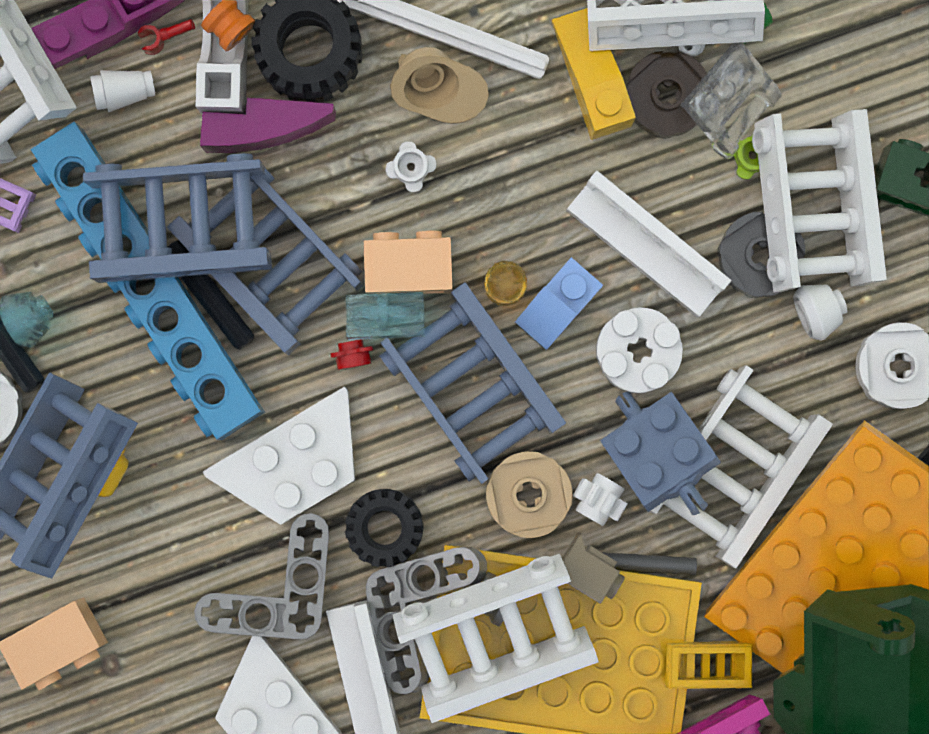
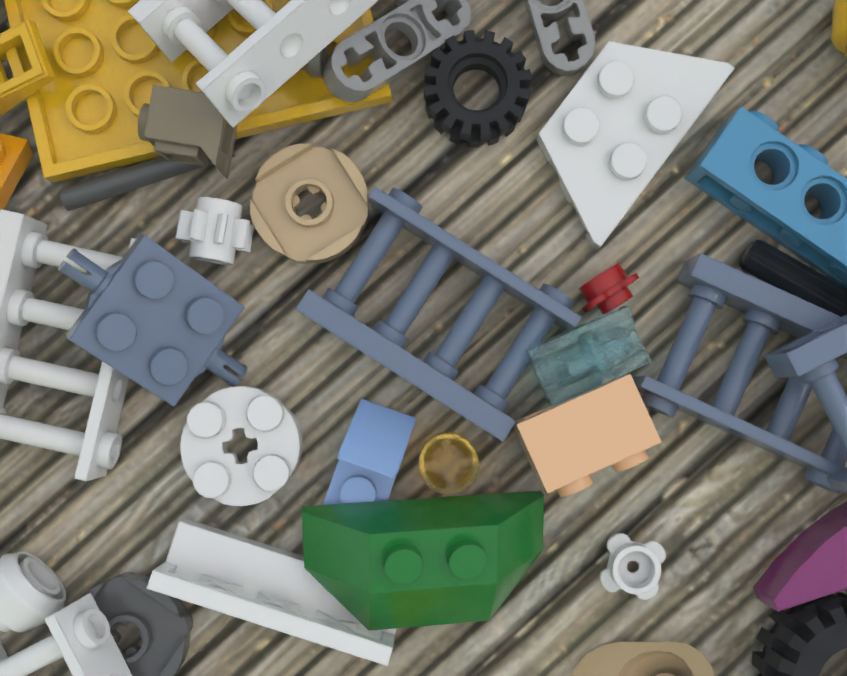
camera: 160 degrees right, 0 degrees up
(545, 228) = (424, 555): none -> green wedge

